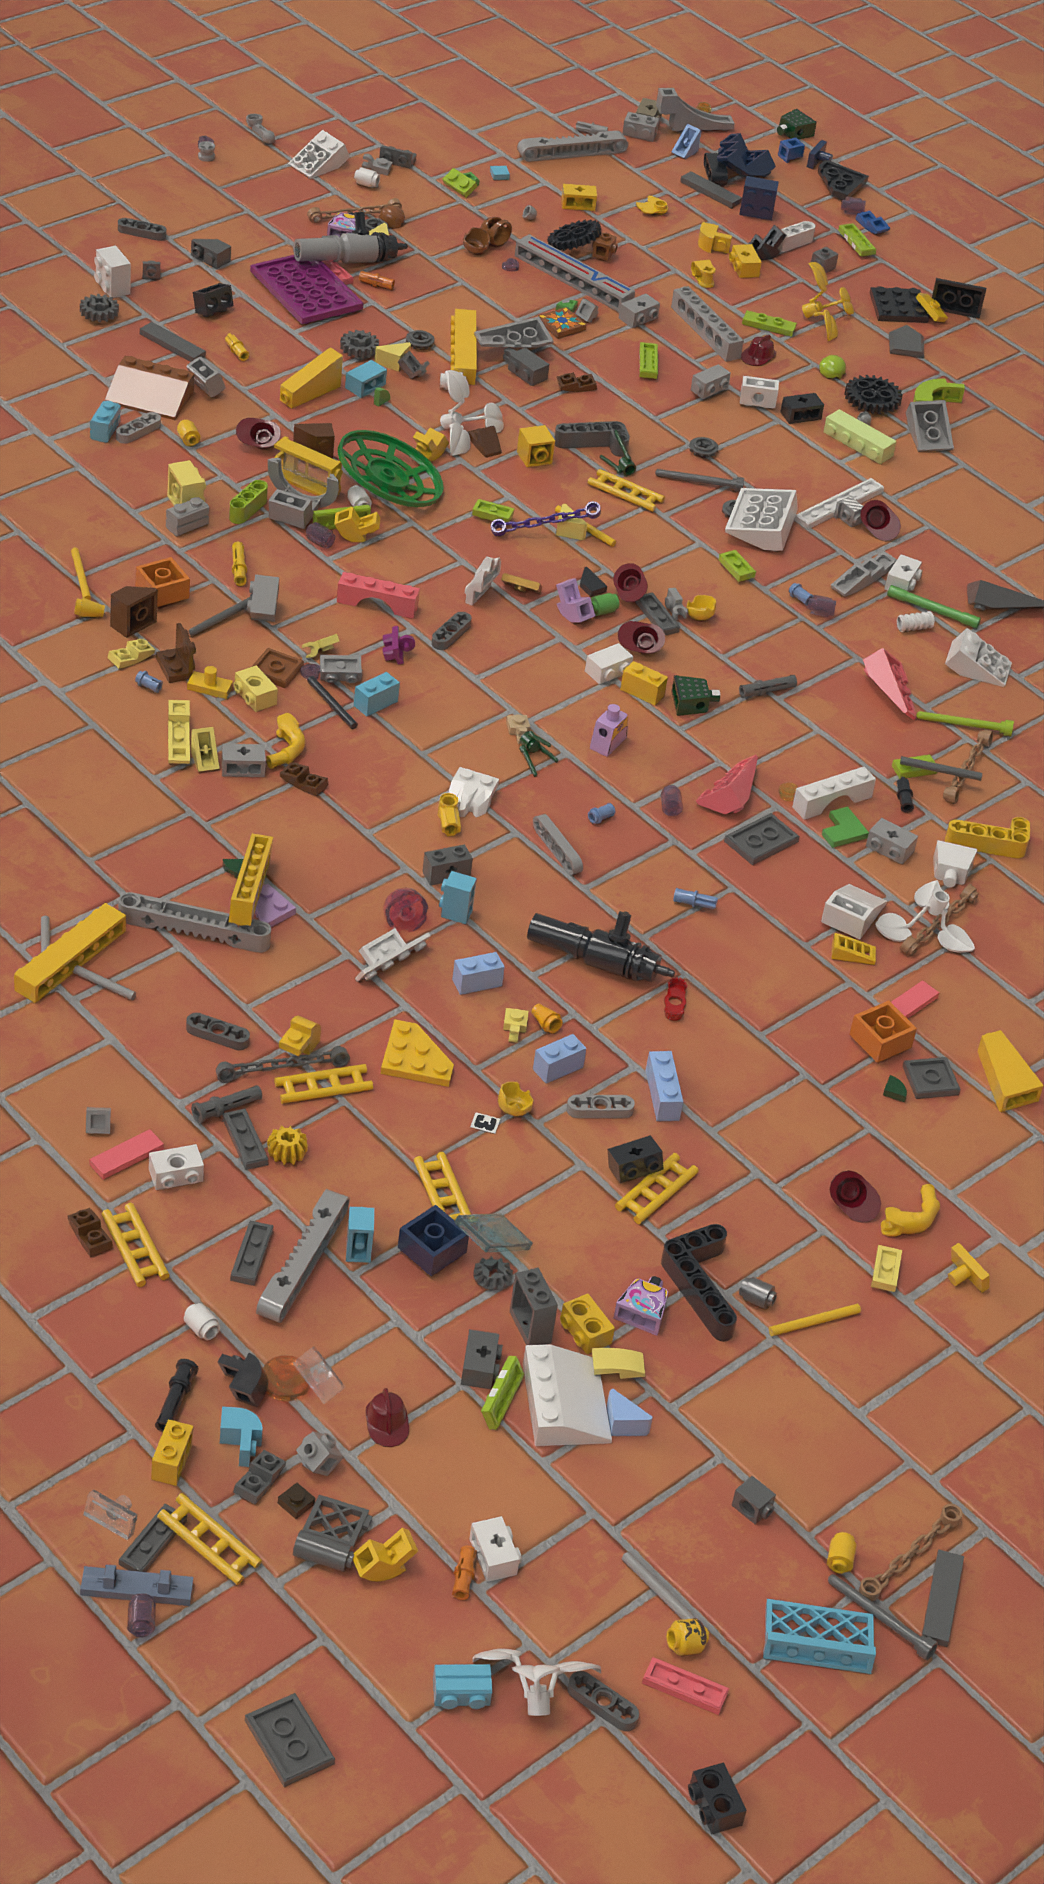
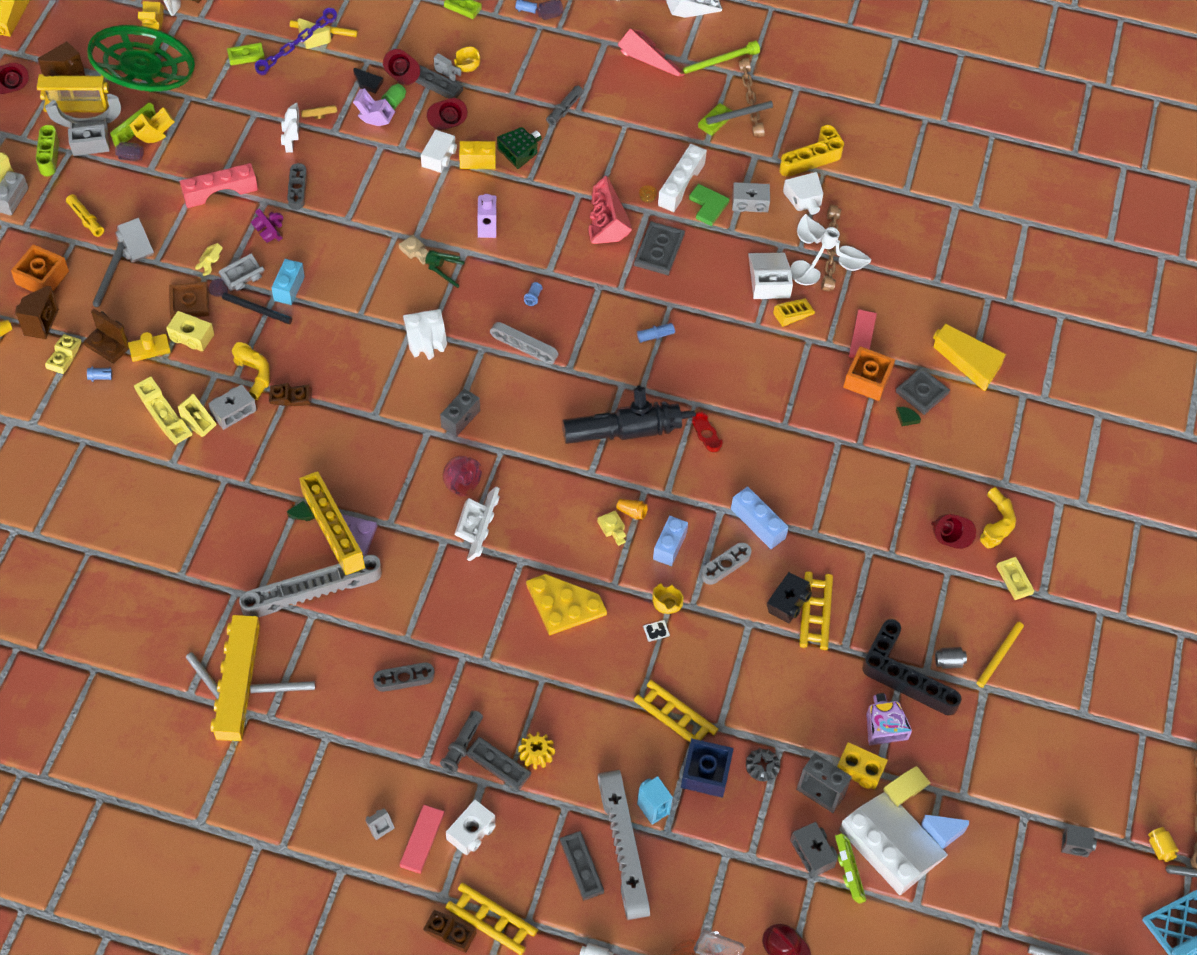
camera: 30 degrees left, 15 degrees up
(301, 1036) = (474, 646): yellow brick -> none
(315, 1092) = (516, 685): yellow bar -> none
(338, 1056) = (439, 711): dark grey piece -> none
(358, 496) = (133, 98): white brick -> none
(449, 814) = (426, 364): yellow piece -> none
(458, 897) = (494, 440): medium azure brick -> none
(478, 973) = (556, 499): light blue brick -> none
(493, 1232) = (744, 733): clear light blue tile -> none
(671, 800) = (575, 252): brick -> none
(905, 795) = (728, 149): black axle -> none
(967, 1268) = (1066, 544): yellow tile -> none

